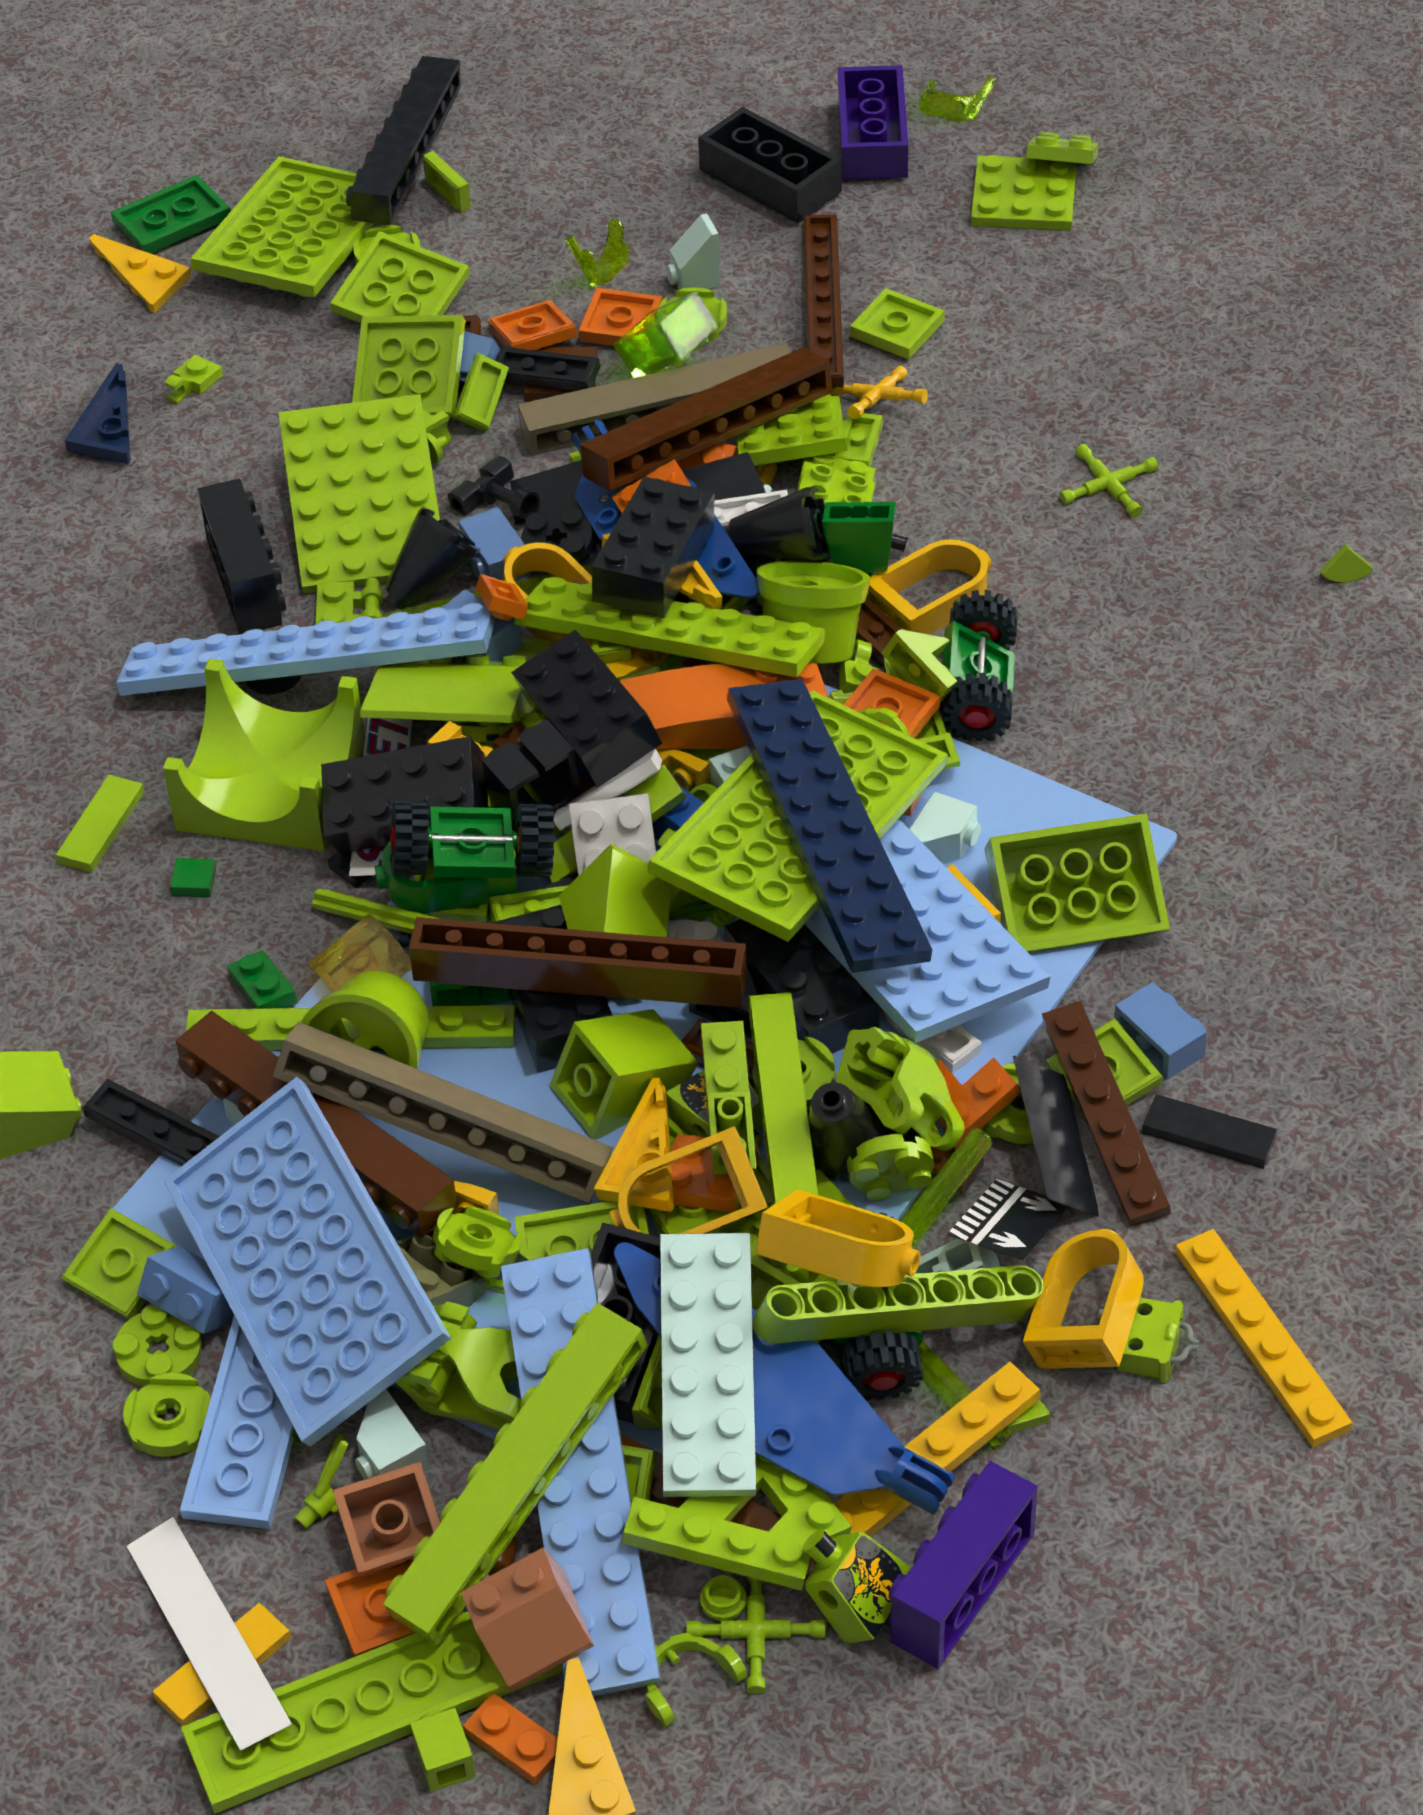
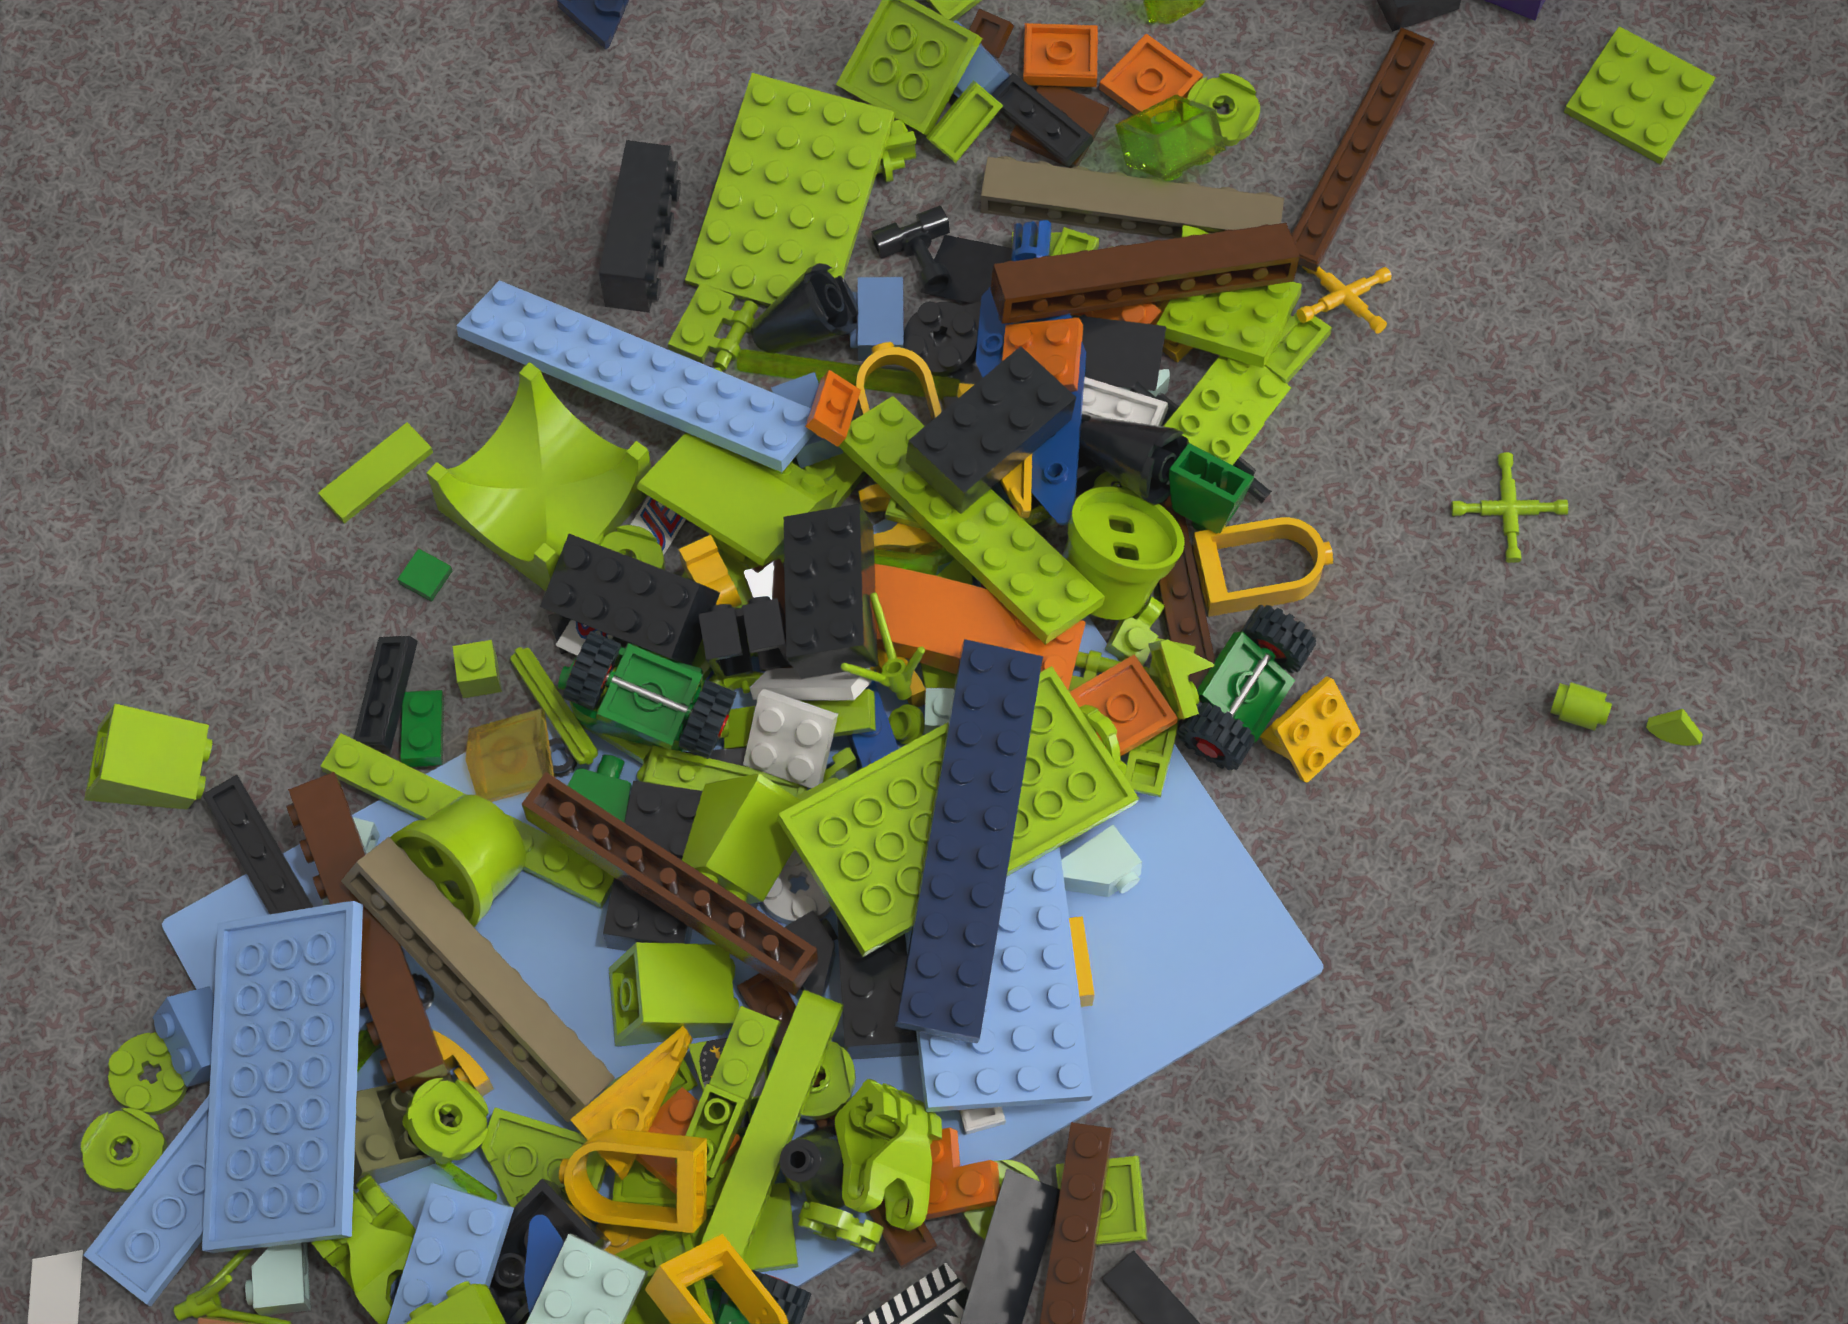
camera: 25 degrees right, 20 degrees up
(114, 1262) = (156, 968): lime plate -> none
(209, 967) = (385, 691): none -> black tile
(287, 917) = (477, 669): none -> lime brick
(677, 749) = (894, 672): none -> lime plant
(696, 257) = (1256, 44): light aqua slope -> none
(897, 323) = (1414, 212): lime plate -> none
(947, 1182) = (874, 1266): clear neon green axle -> none
(1049, 147) = (1705, 62): lime plate -> none
(1053, 675) = (1313, 729): none -> yellow bracket
(1077, 883) = (1188, 991): lime slope -> none
(1162, 1029) = (1177, 1184): medium blue brick -> none
(1261, 579) = (1581, 705): none -> lime brick

